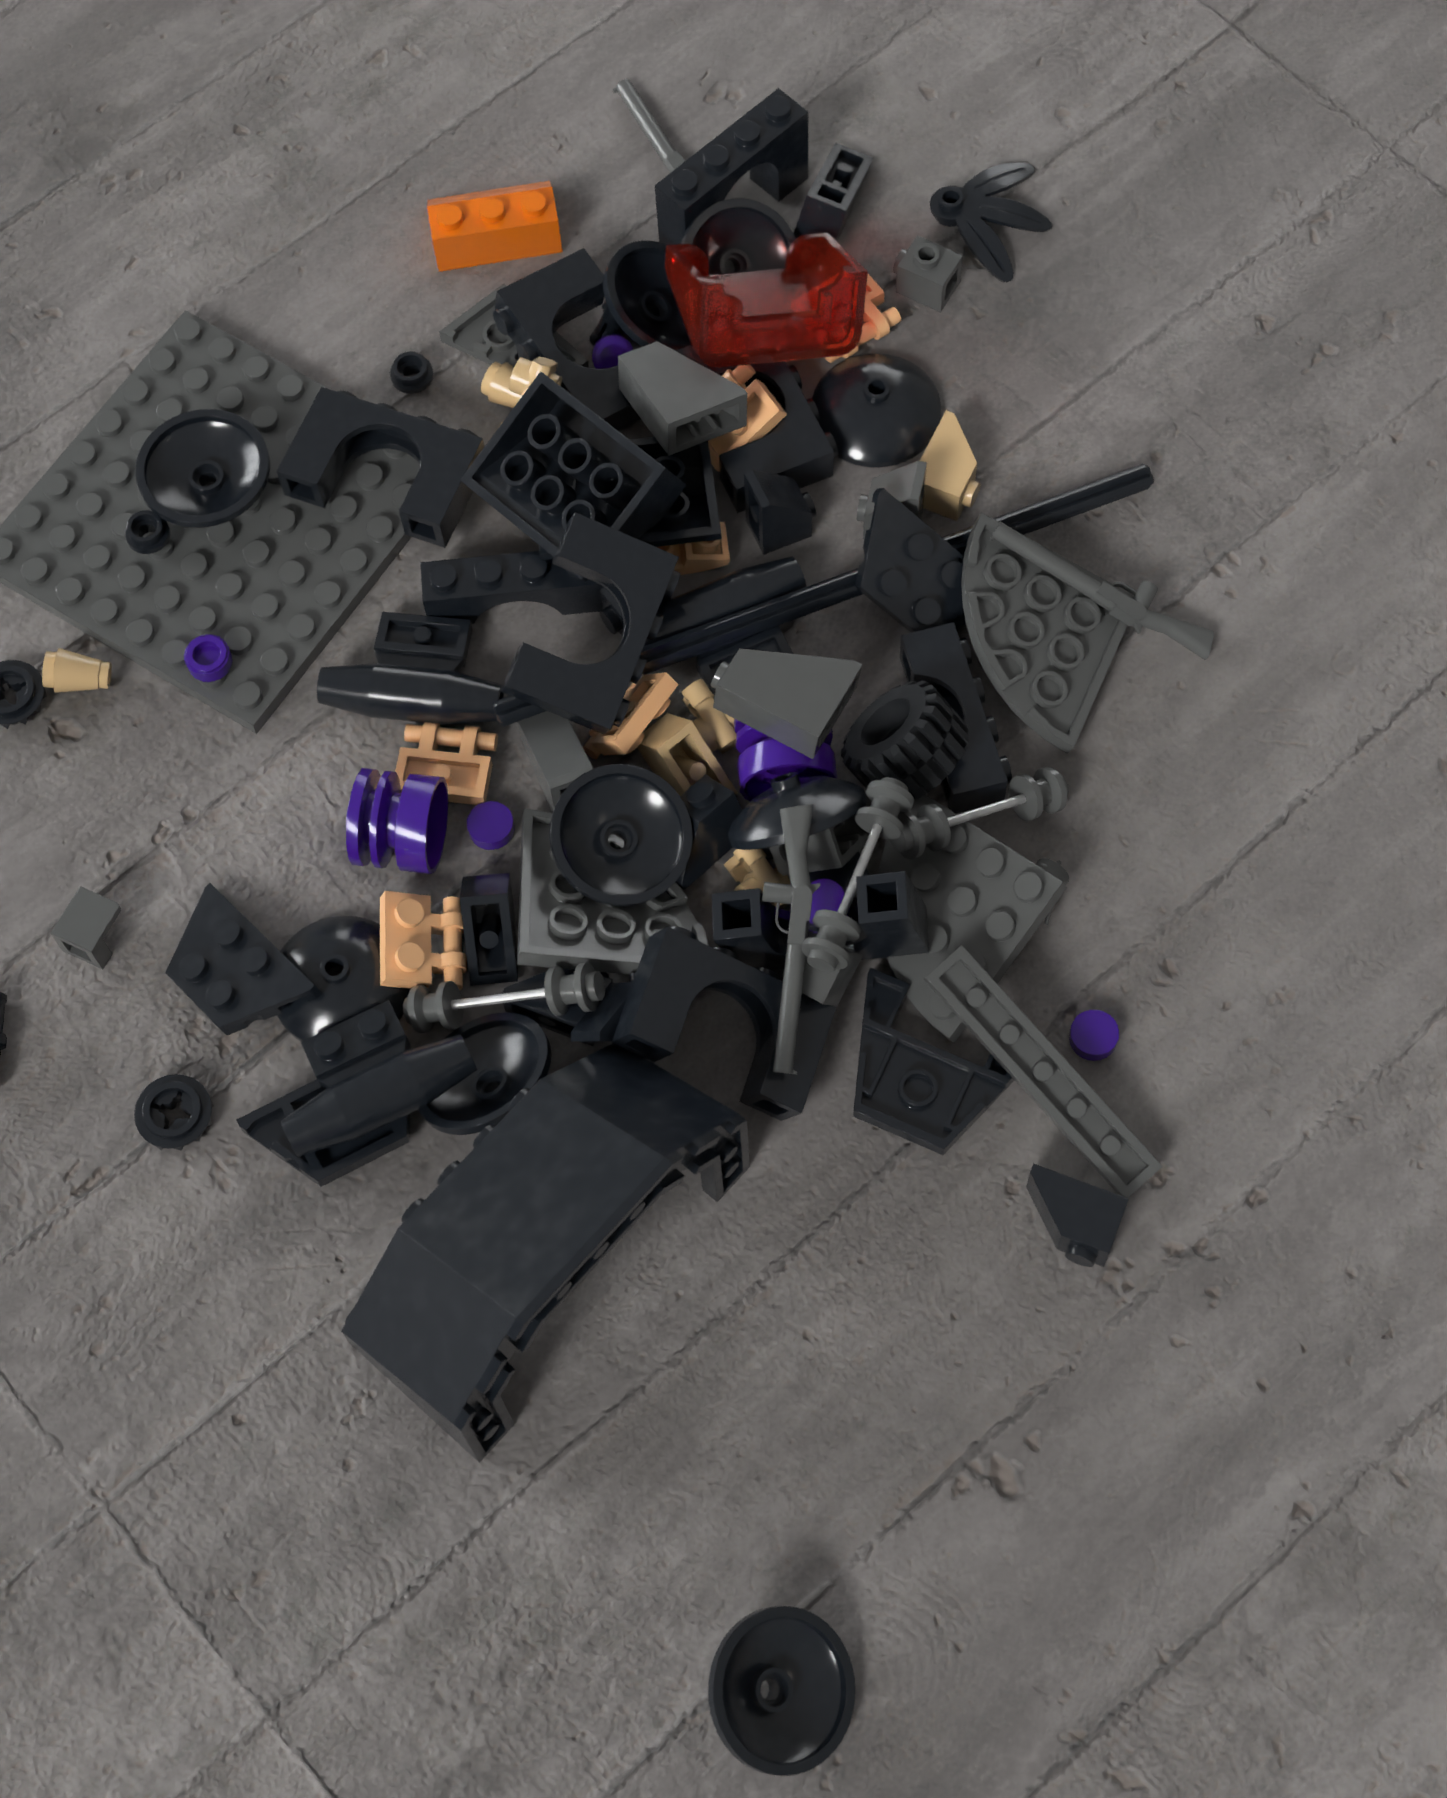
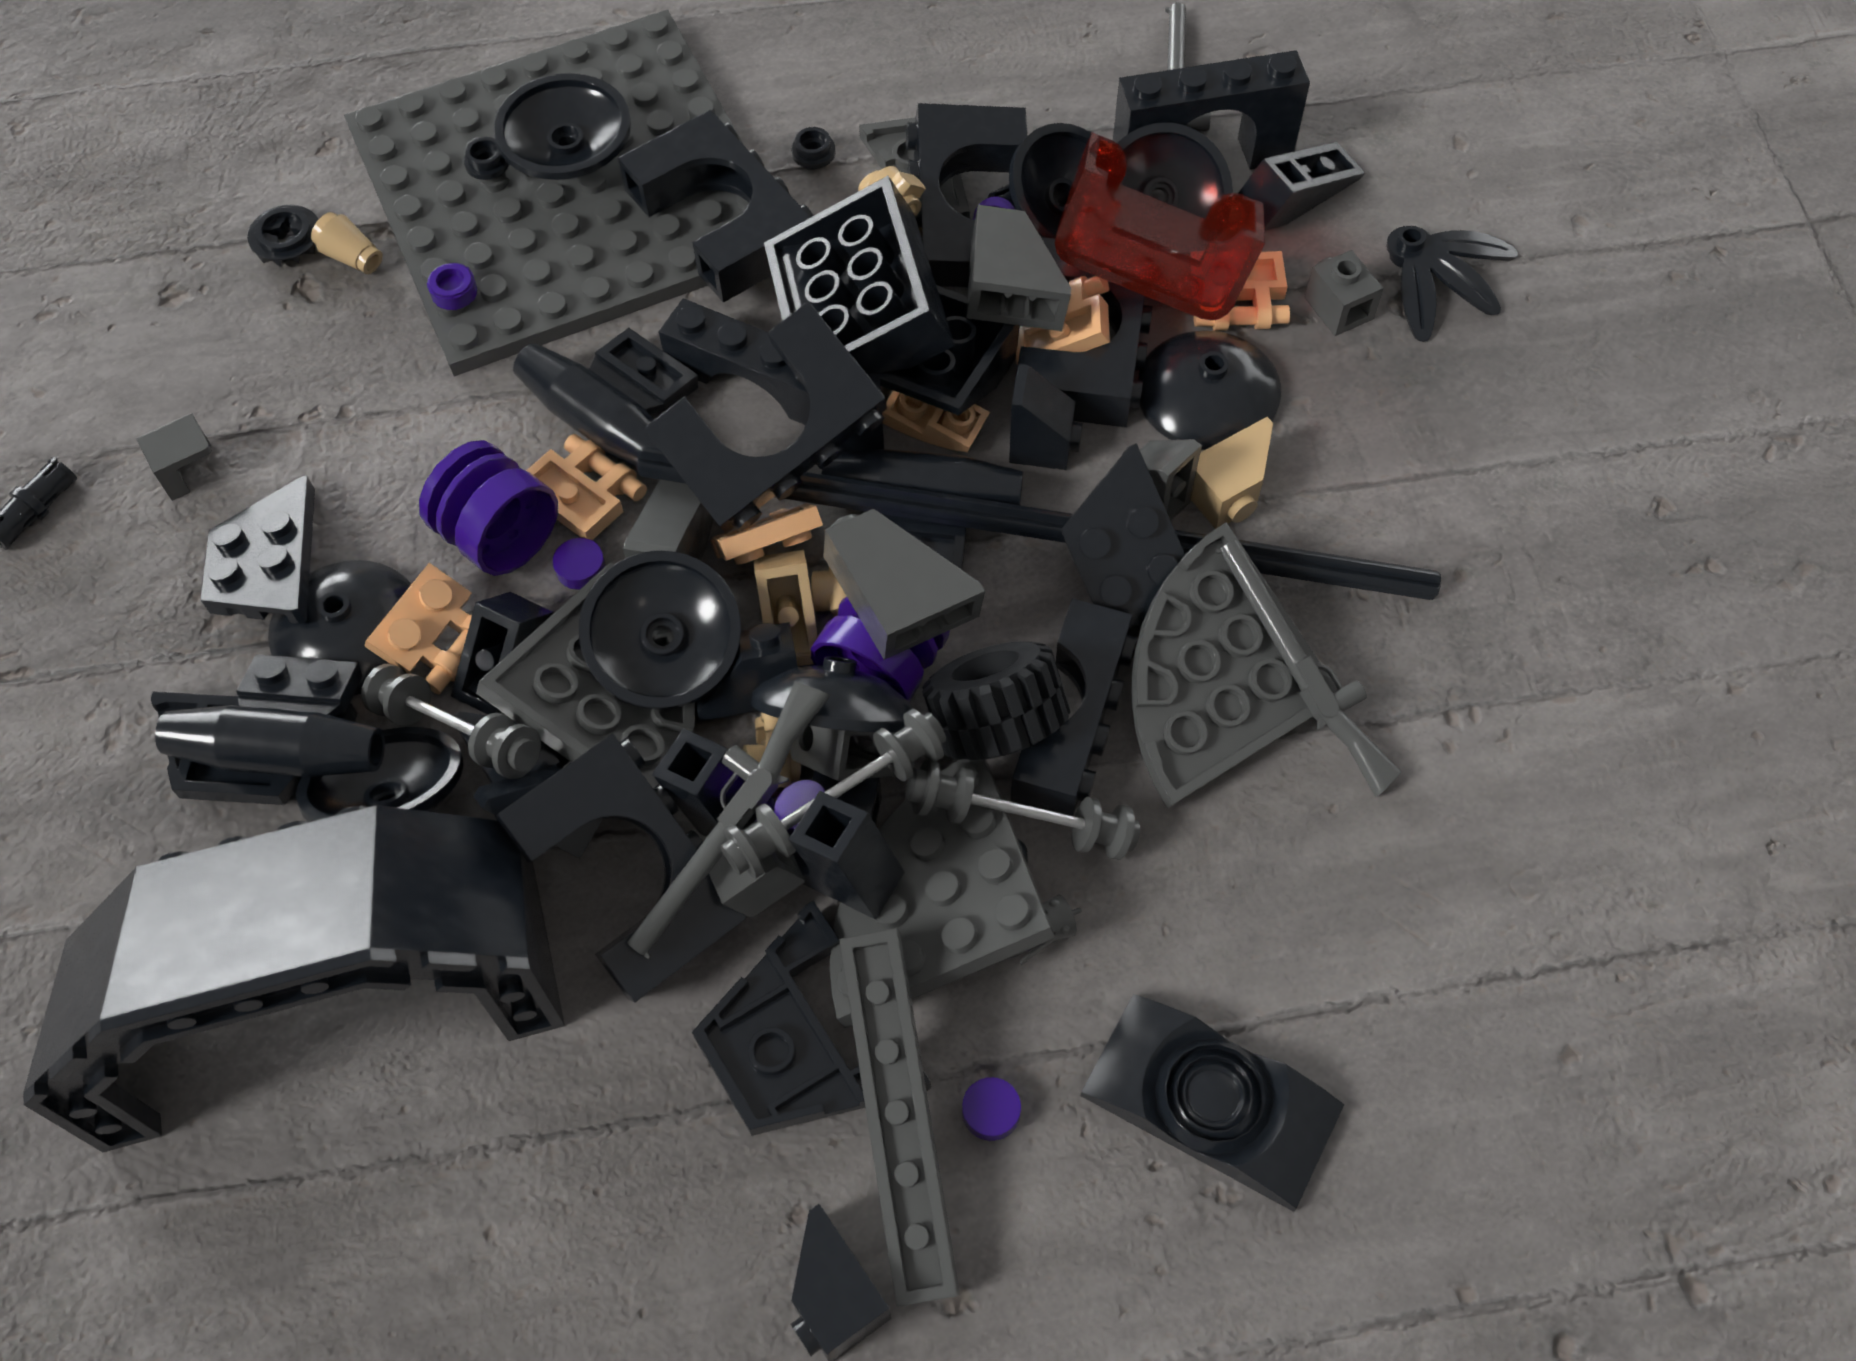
camera: 30 degrees right, 5 degrees down
(165, 1094) = (94, 660): black gear -> none
(494, 226) = (973, 65): orange slope -> none
(1235, 936) = (1214, 1099): none -> black slope

